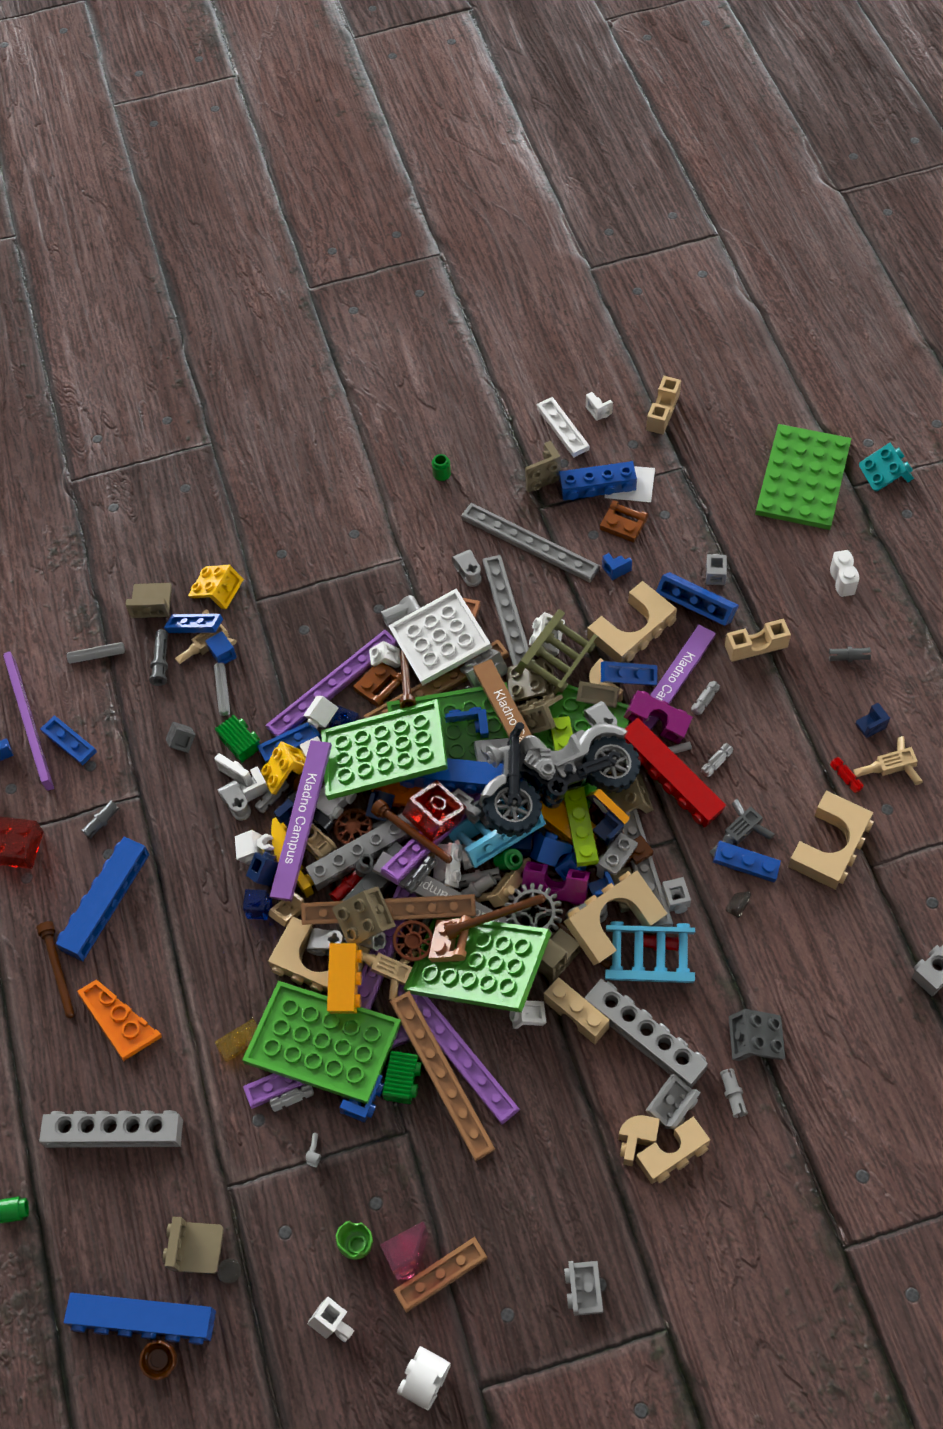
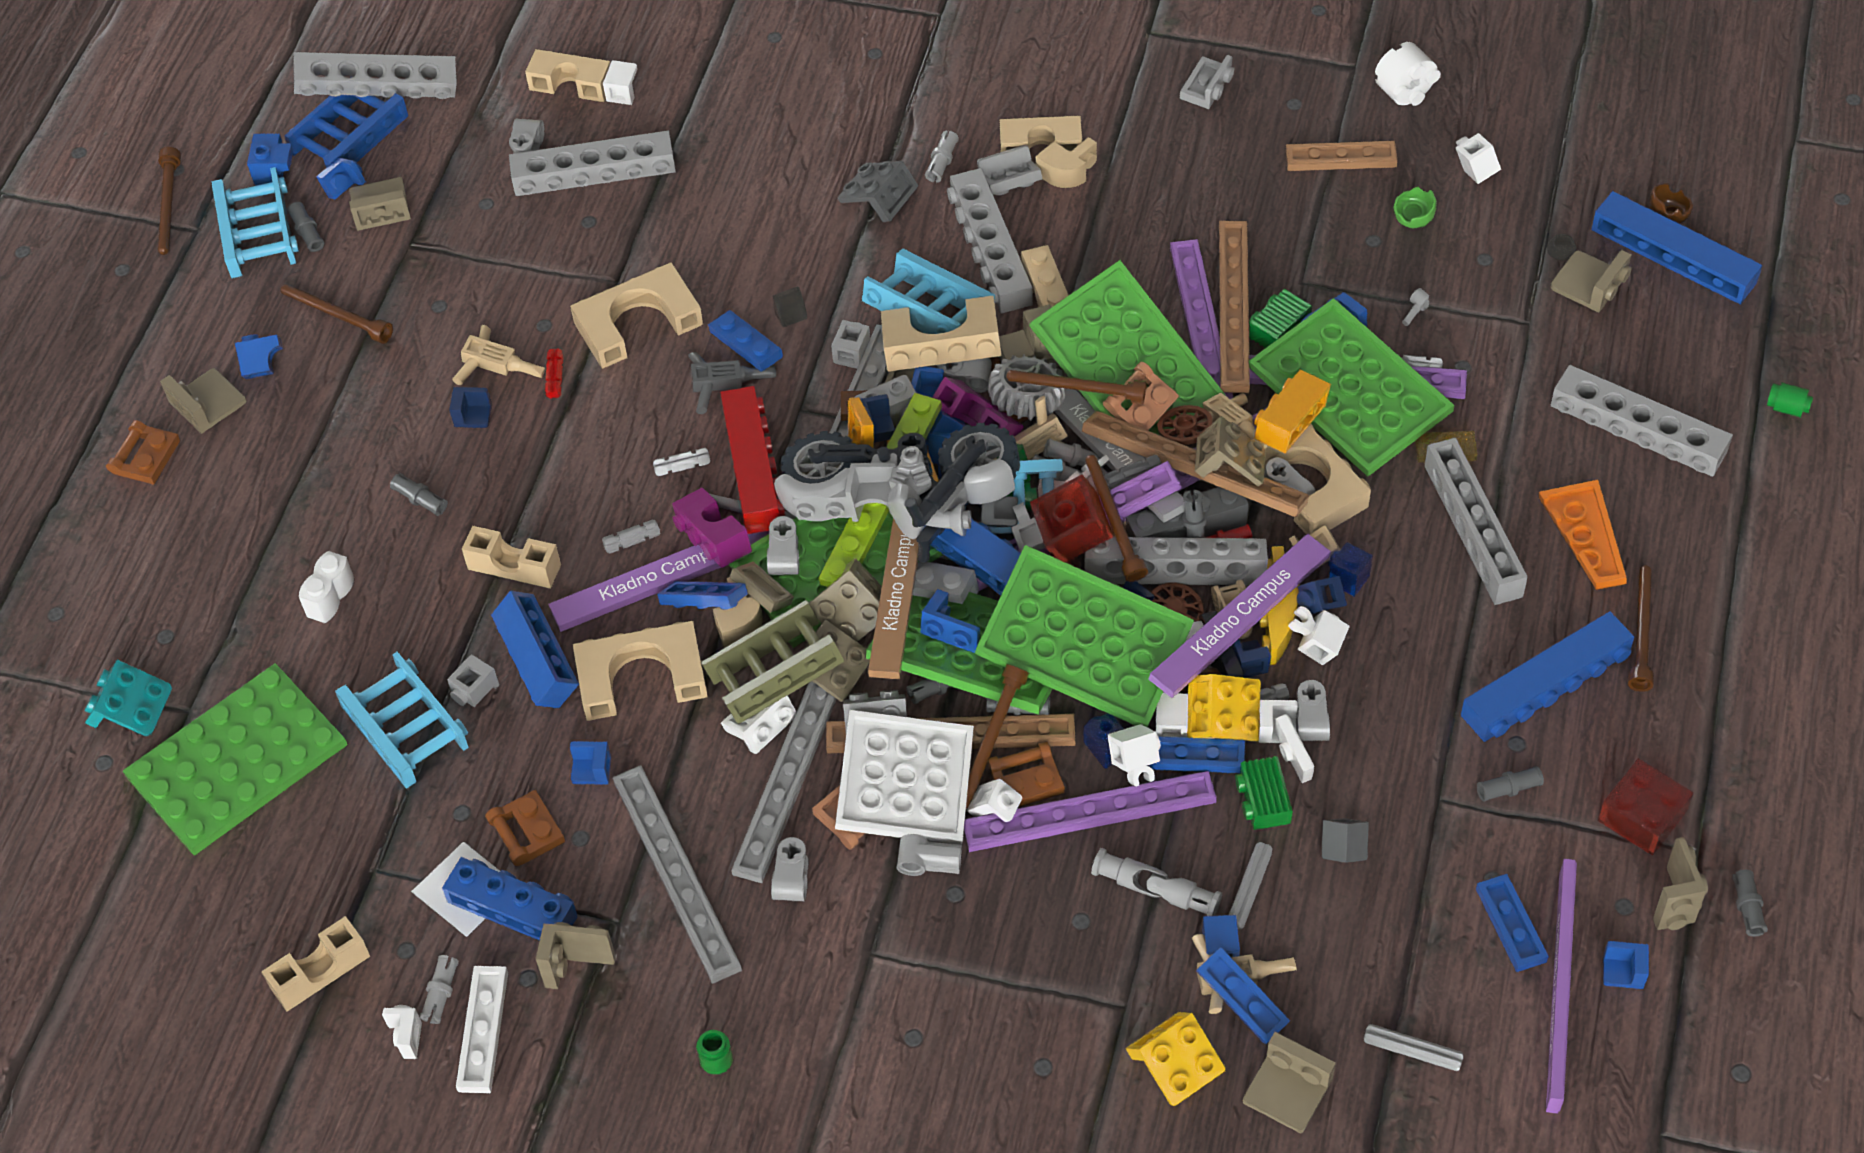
camera: 150 degrees left, 5 degrees down
(159, 662) = (1324, 968): dark grey pin -> none
(192, 979) = (1475, 521): none -> light grey brick
(282, 659) = (1176, 891): none -> light grey piece
(406, 1251) = (1365, 168): clear pink slope -> none
(598, 431) = (439, 989): none -> light grey pin
(737, 517) = (388, 744): none -> medium azure fence

